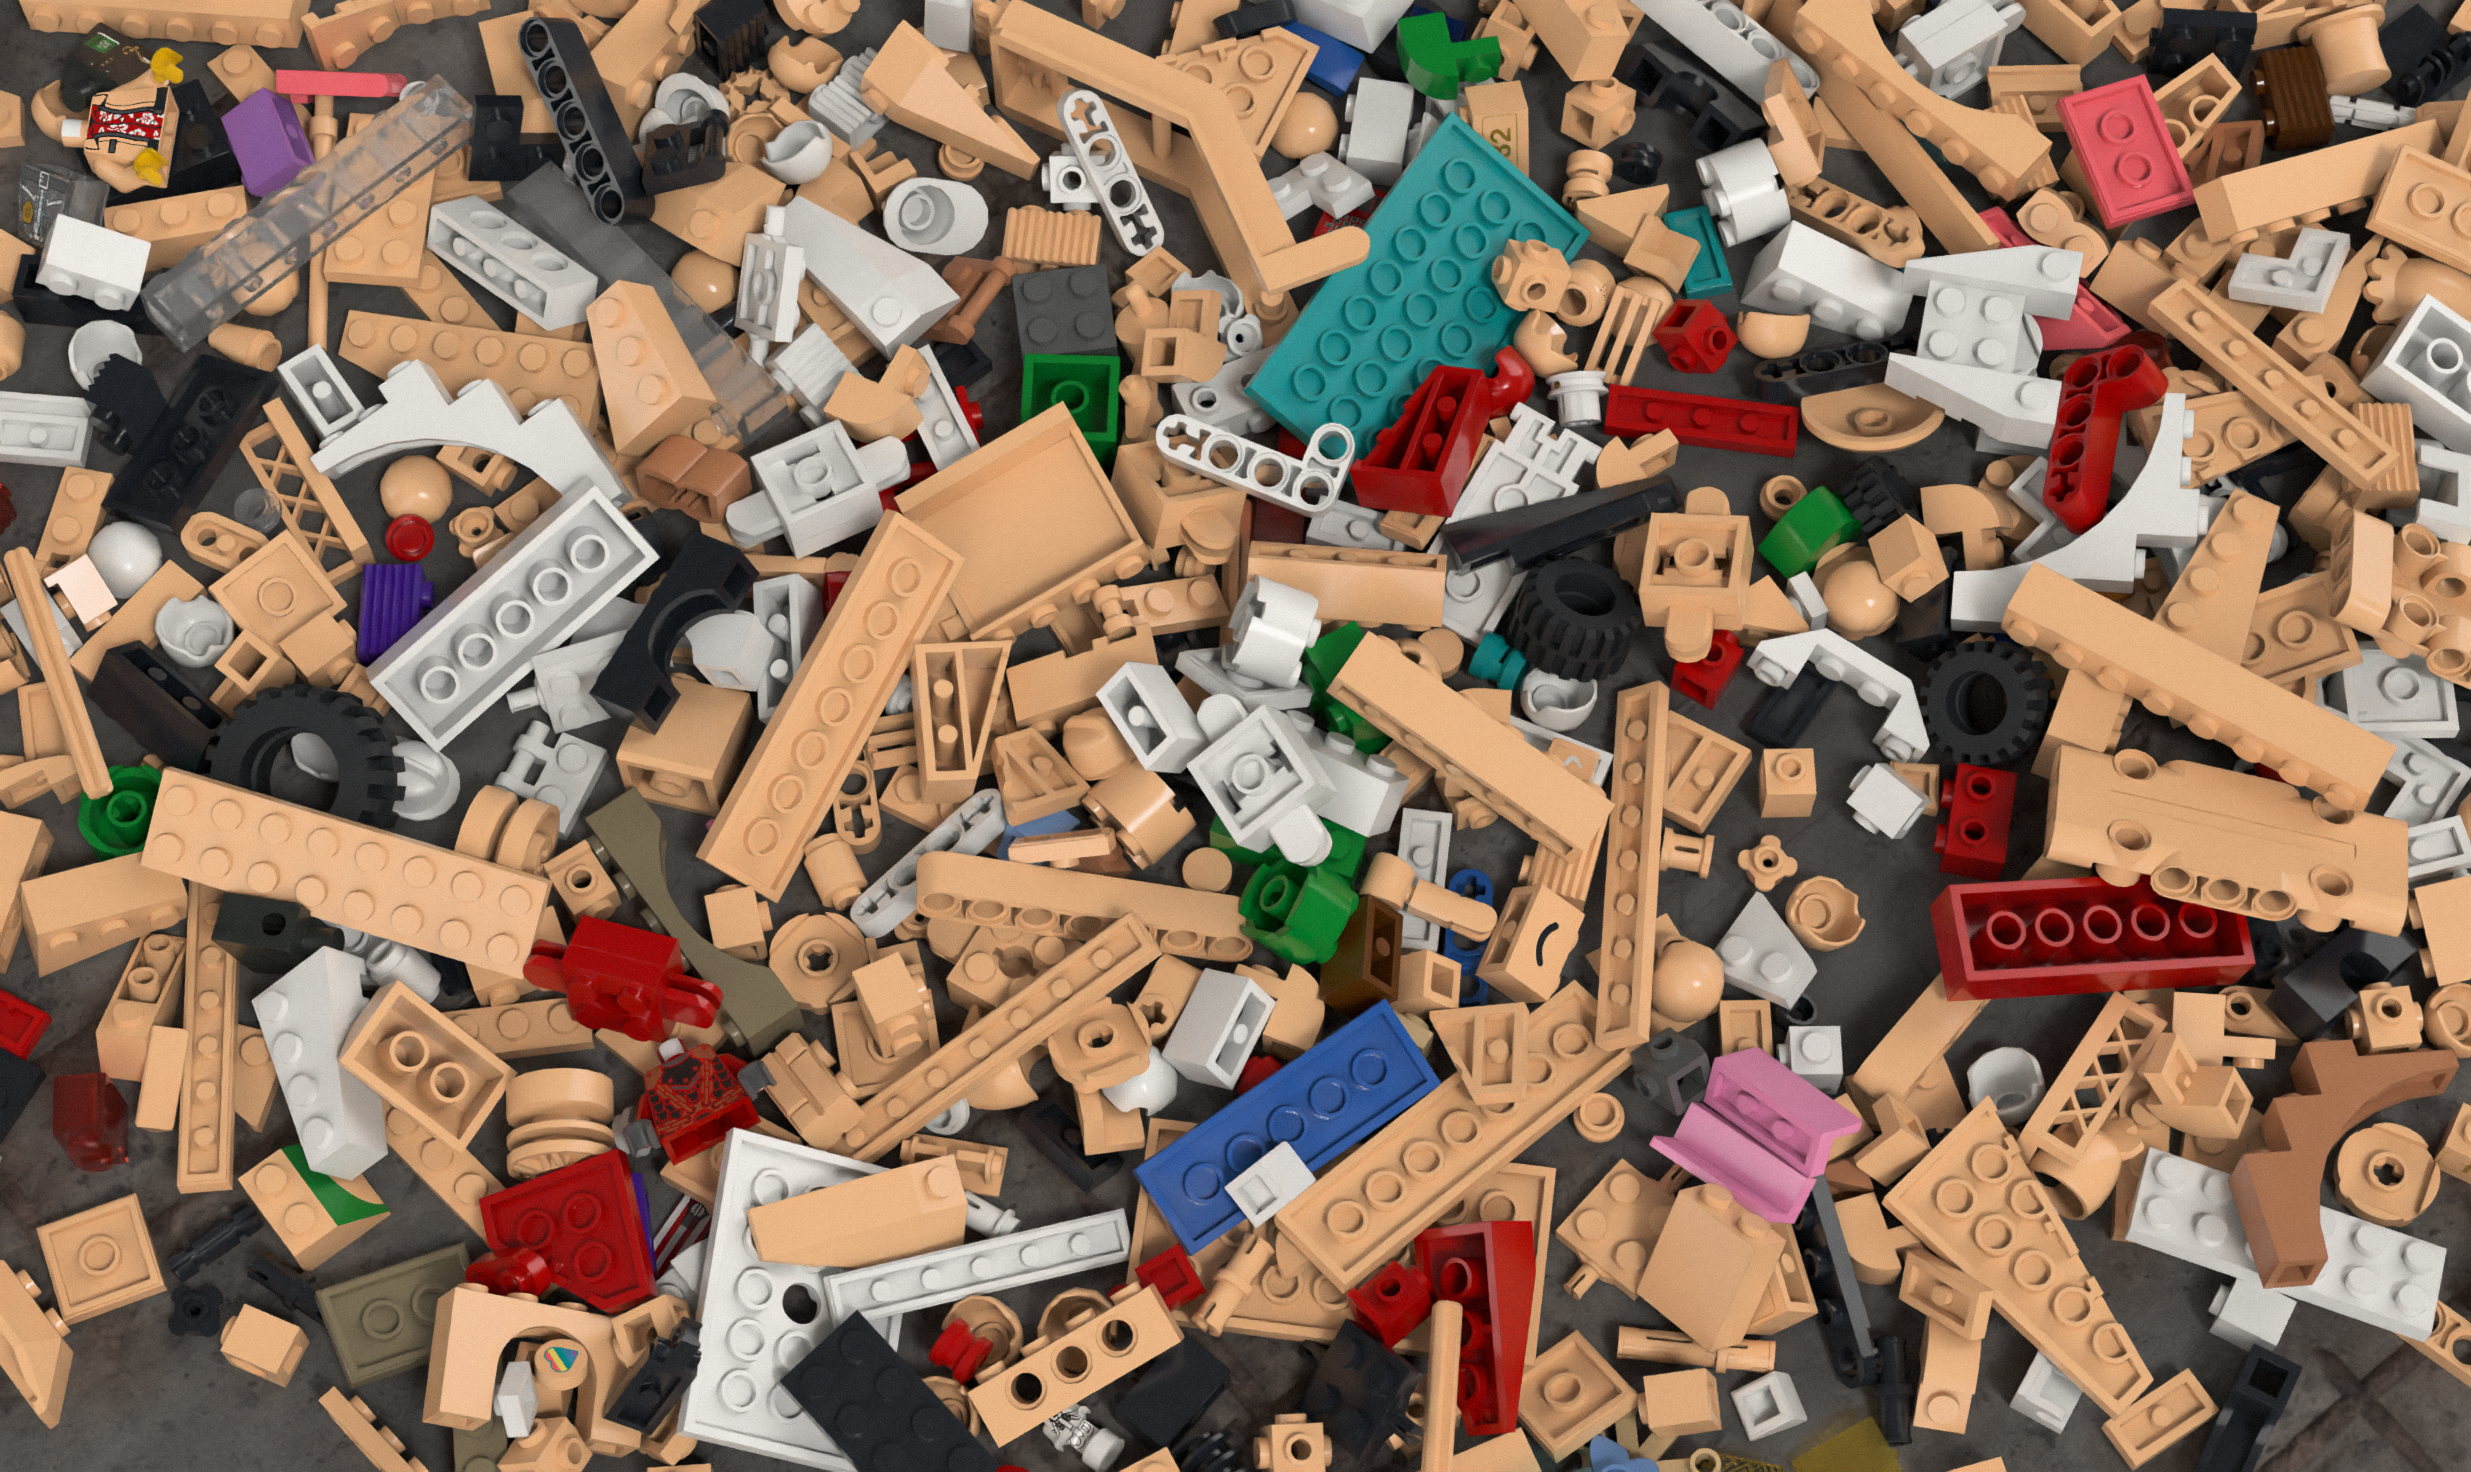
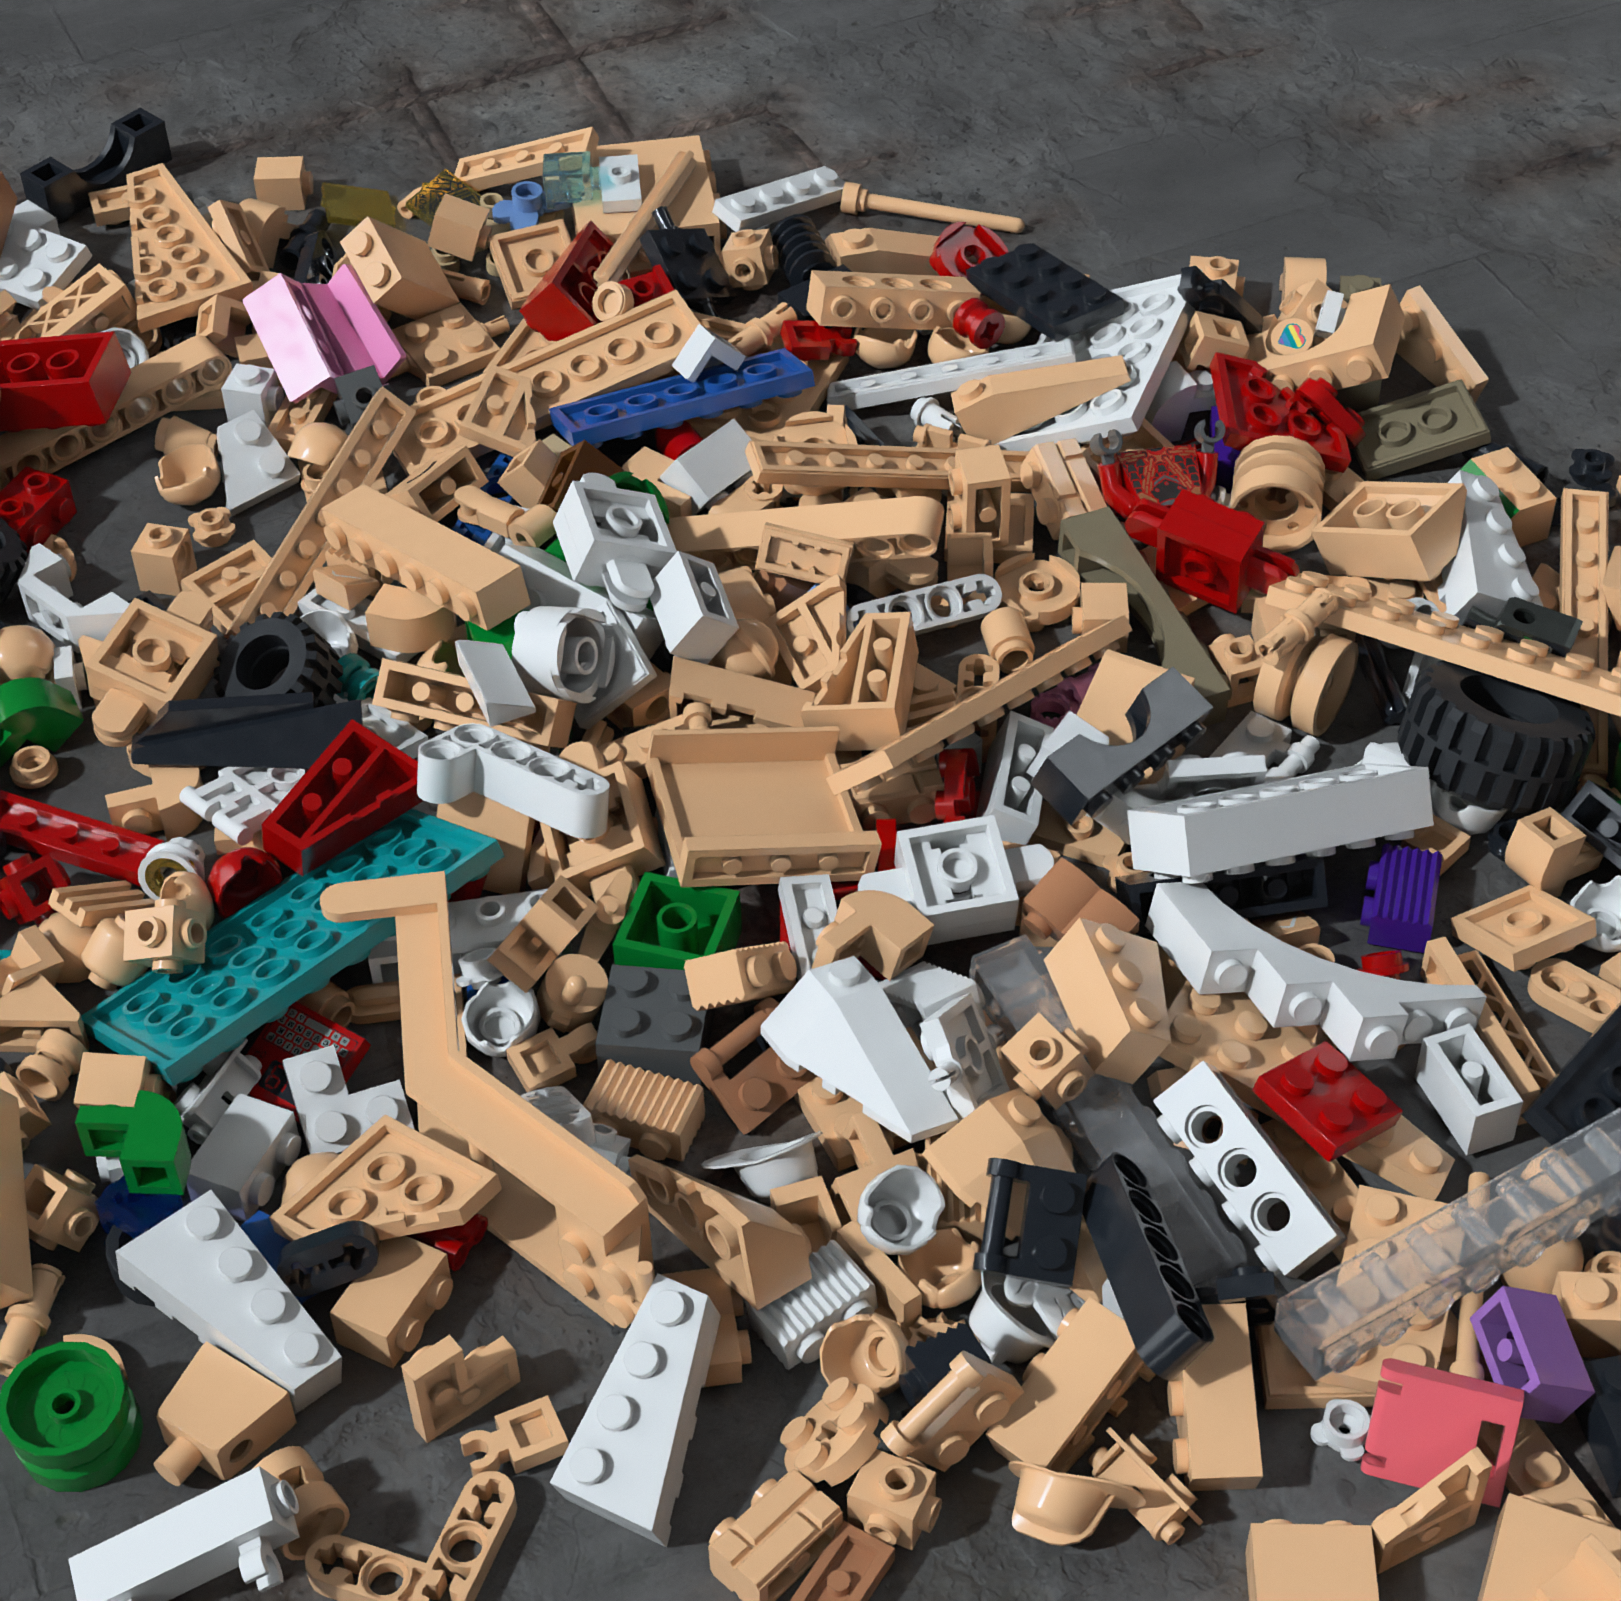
camera: 165 degrees left, 20 degrees down
(250, 502) = (1546, 1023): clear plate -> none
(263, 1345) = (1535, 430): light nougat brick -> none
(322, 650) = (1477, 877): light nougat brick -> none
(448, 328) = (1327, 1101): none -> red plate
(513, 820) = (1296, 626): none -> light nougat pin
(691, 273) = (1048, 1062): none -> light nougat brick
(990, 343) = (740, 975): none -> light nougat brick
(1316, 548) = (493, 681): none -> white slope
(1419, 1257) = (612, 300): none -> light nougat tile
(1686, 852) = (266, 532): light nougat bush -> none
(1860, 986) = (178, 432): none -> light nougat cone
(1886, 800) = (88, 531): white brick -> none

